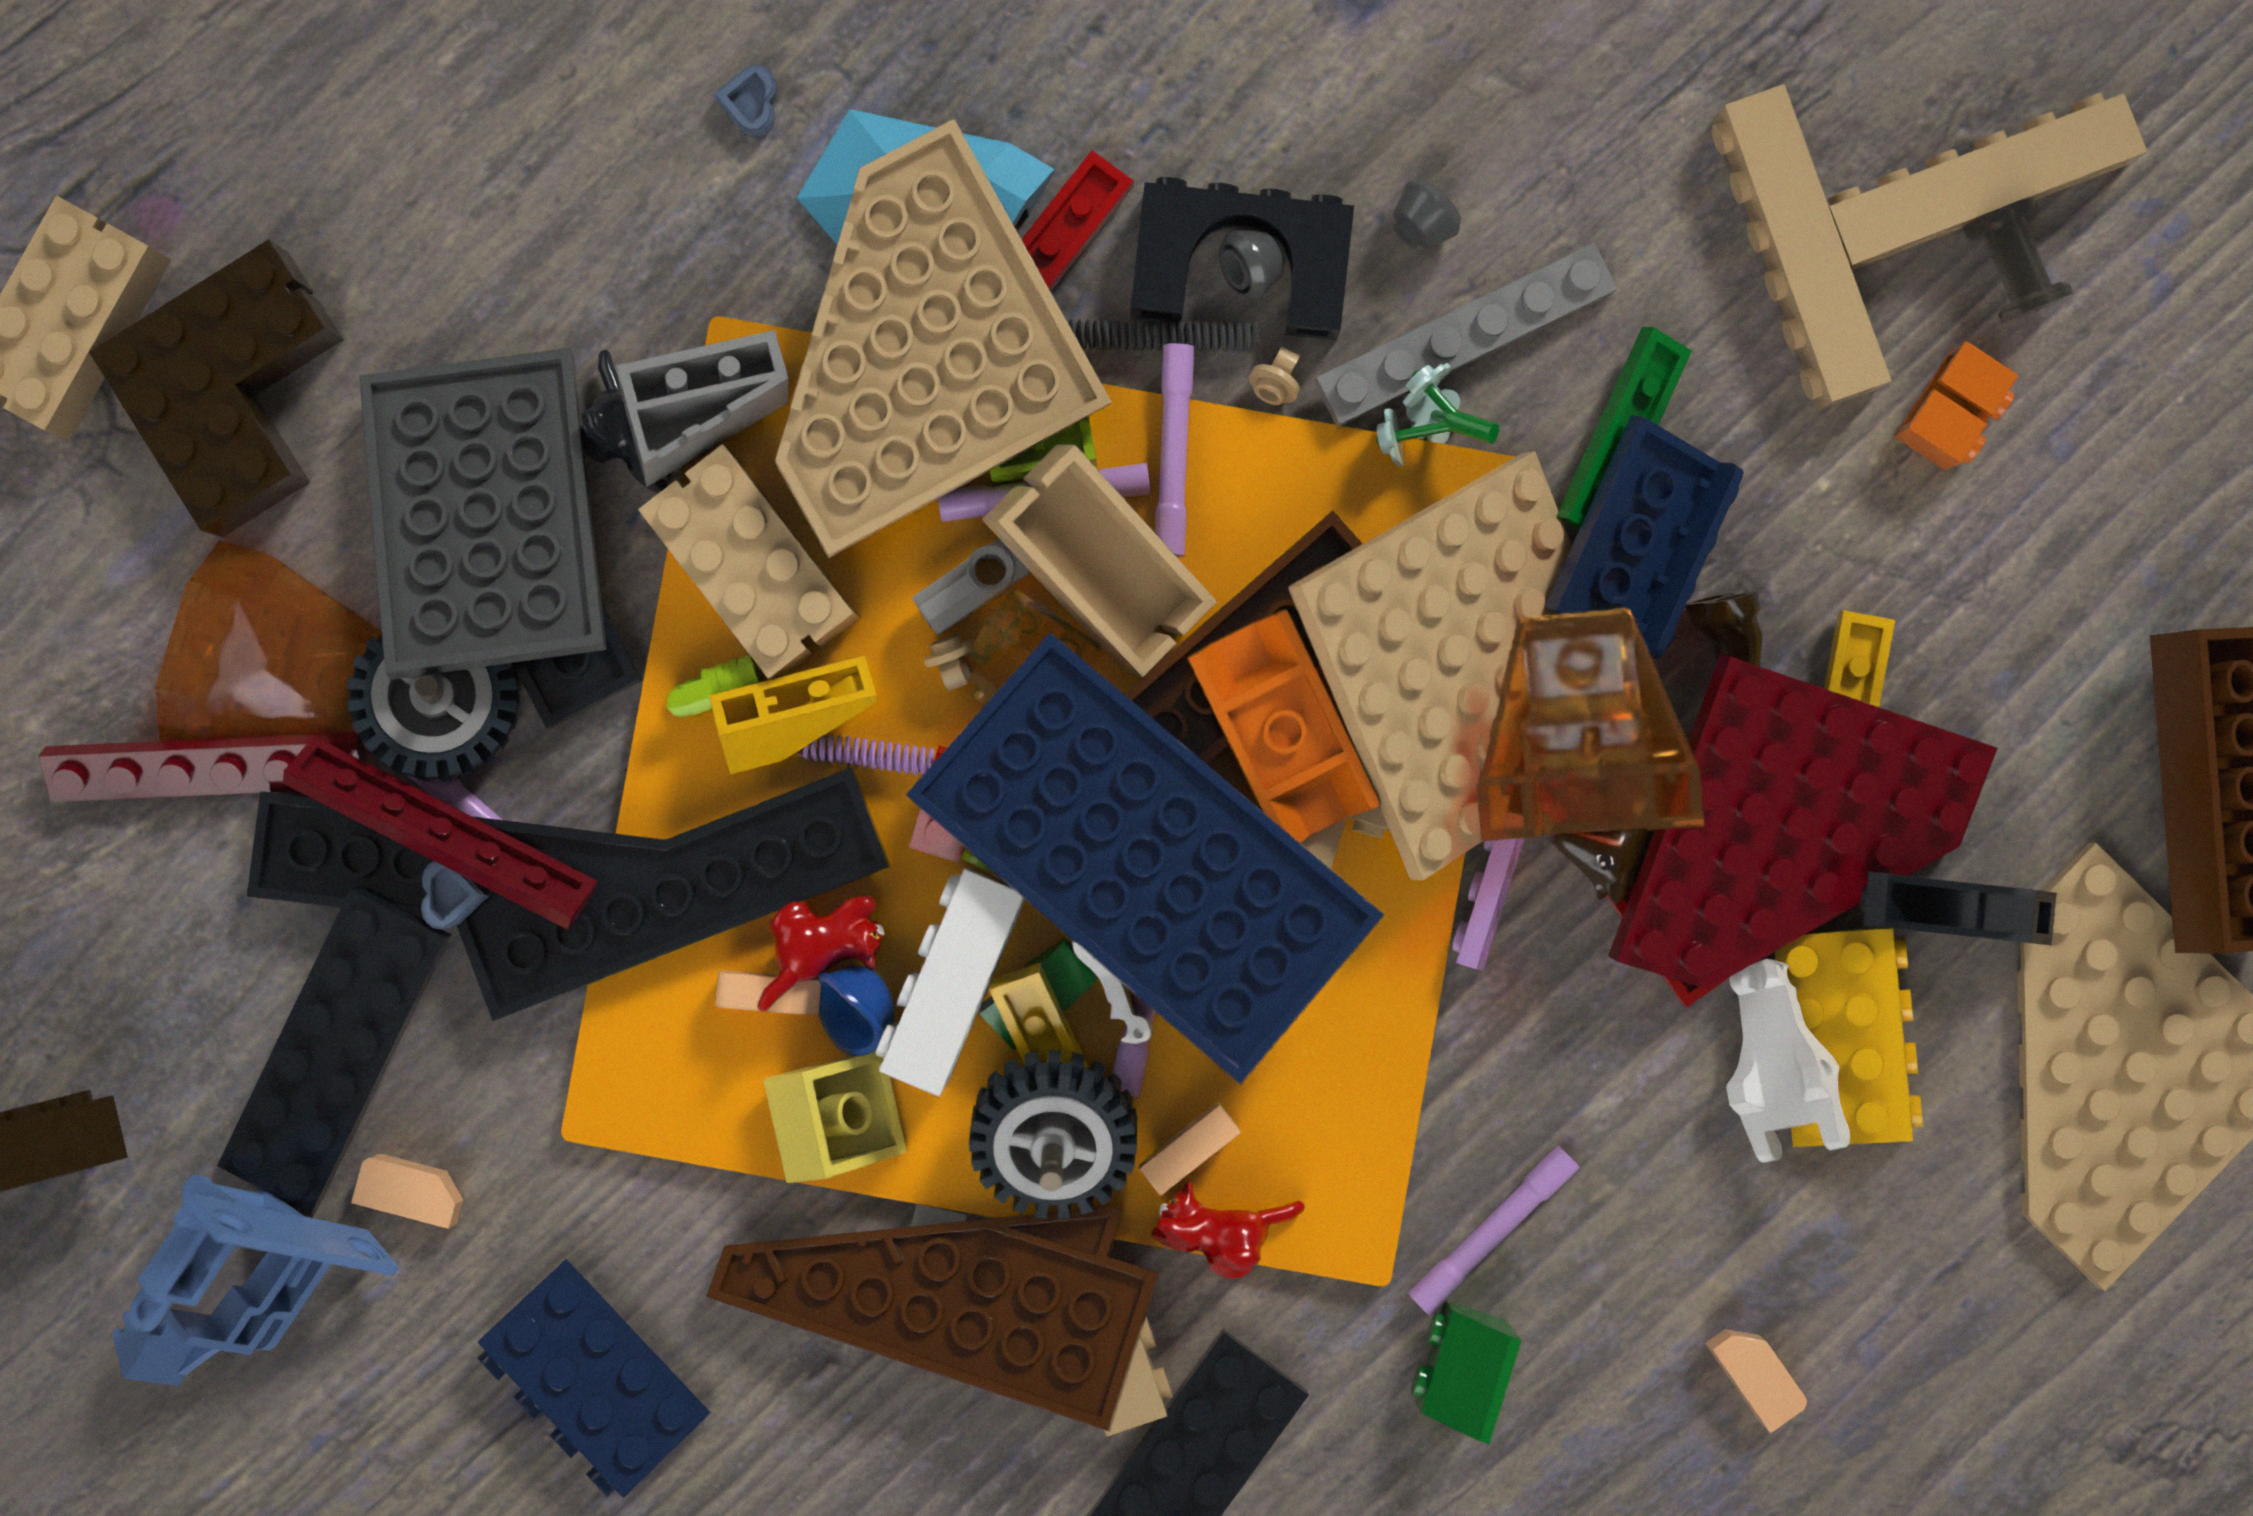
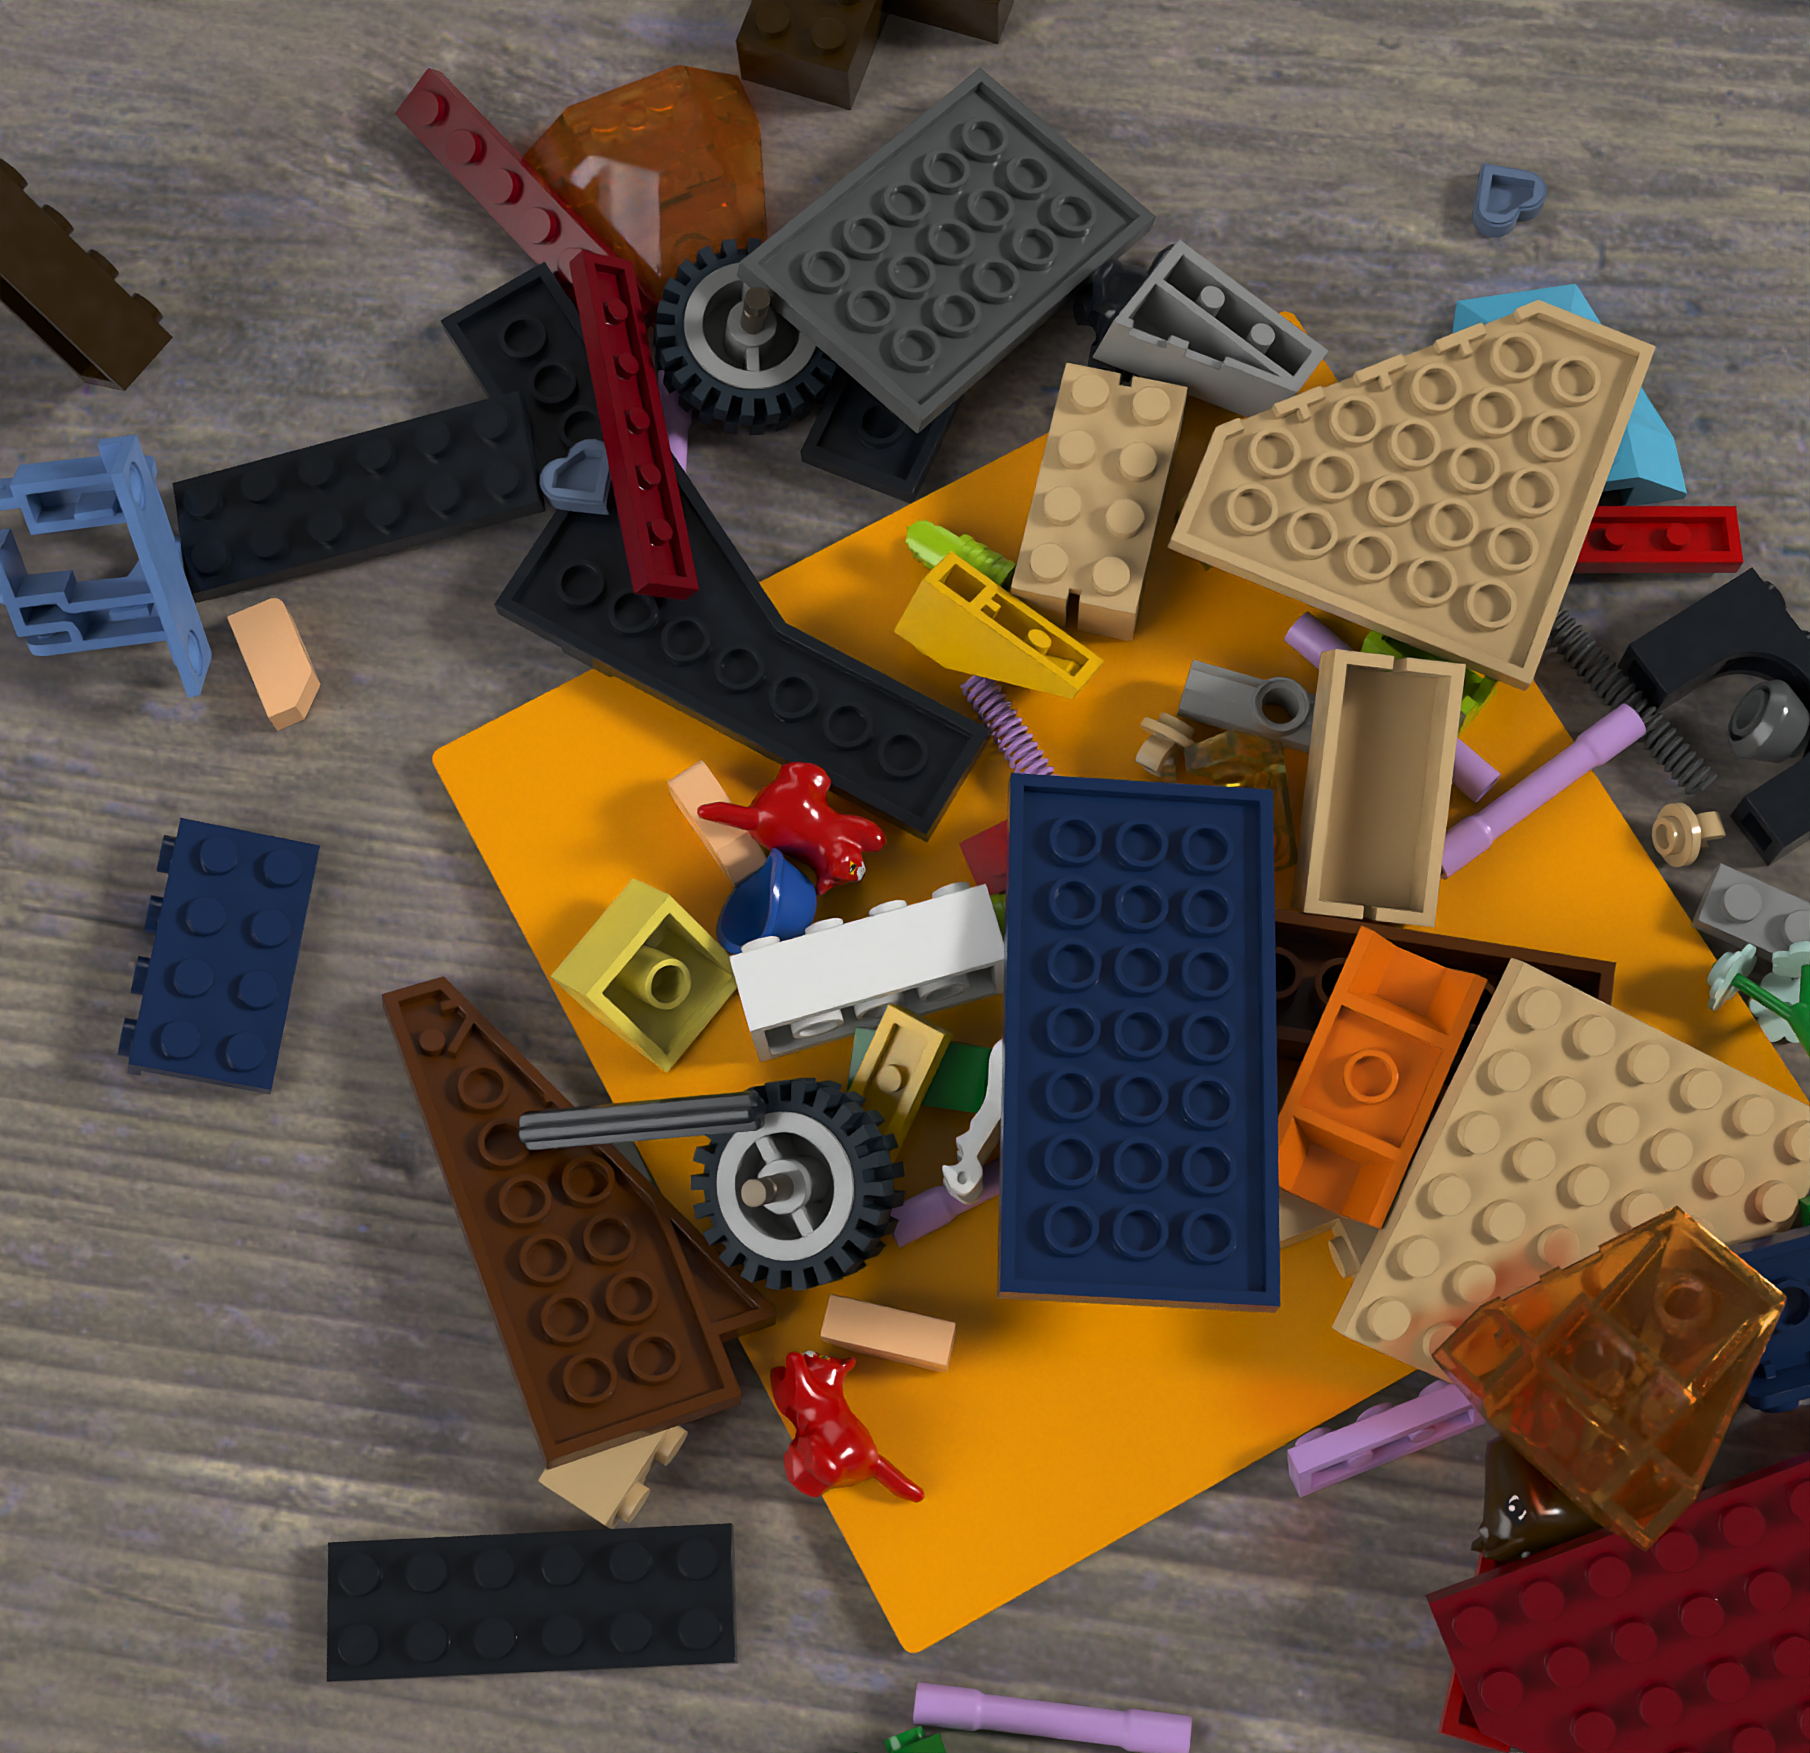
camera: 55 degrees right, 15 degrees down
(936, 1204) = (642, 1120): none -> black axle

